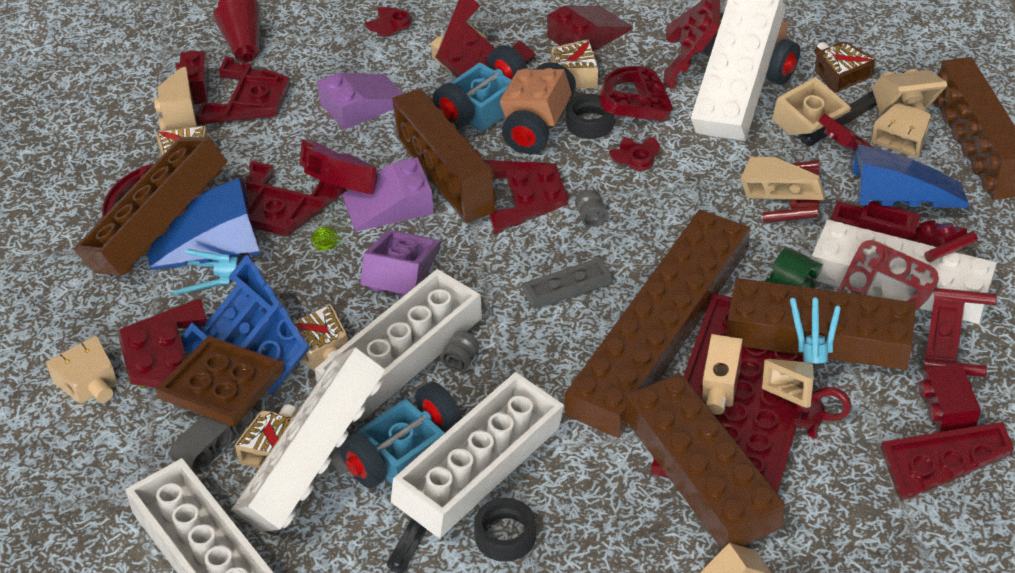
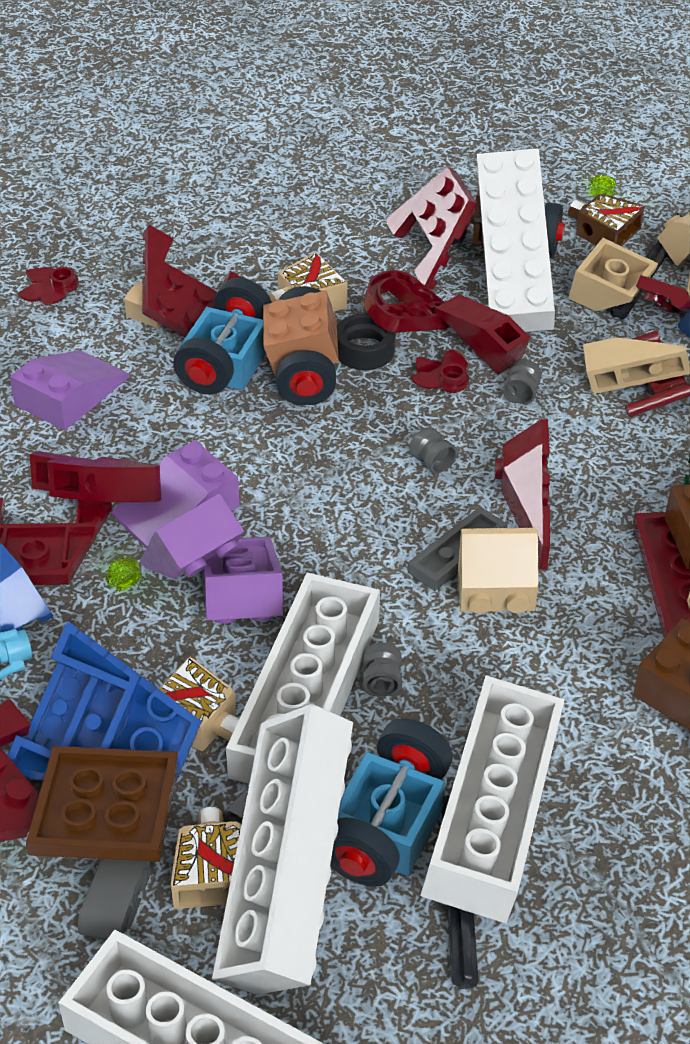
camera: 25 degrees left, 0 degrees up
(370, 223) = (192, 539): none -> medium lavender slope
(444, 155) = (240, 432): reddish brown brick -> none
(505, 549) = (563, 909): black tyre -> none
(534, 191) = (342, 440): dark red wing -> none
(578, 305) = (498, 570): none -> slope
(582, 23) = (291, 238): dark red slope -> none
(646, 247) = (527, 482): none -> dark red wedge
(657, 321) = (597, 571): reddish brown brick -> none
(682, 130) = (487, 331): none -> dark red slope
(691, 175) = (522, 382): none -> dark grey wheel
(859, 36) = (602, 185): none -> clear neon green bush

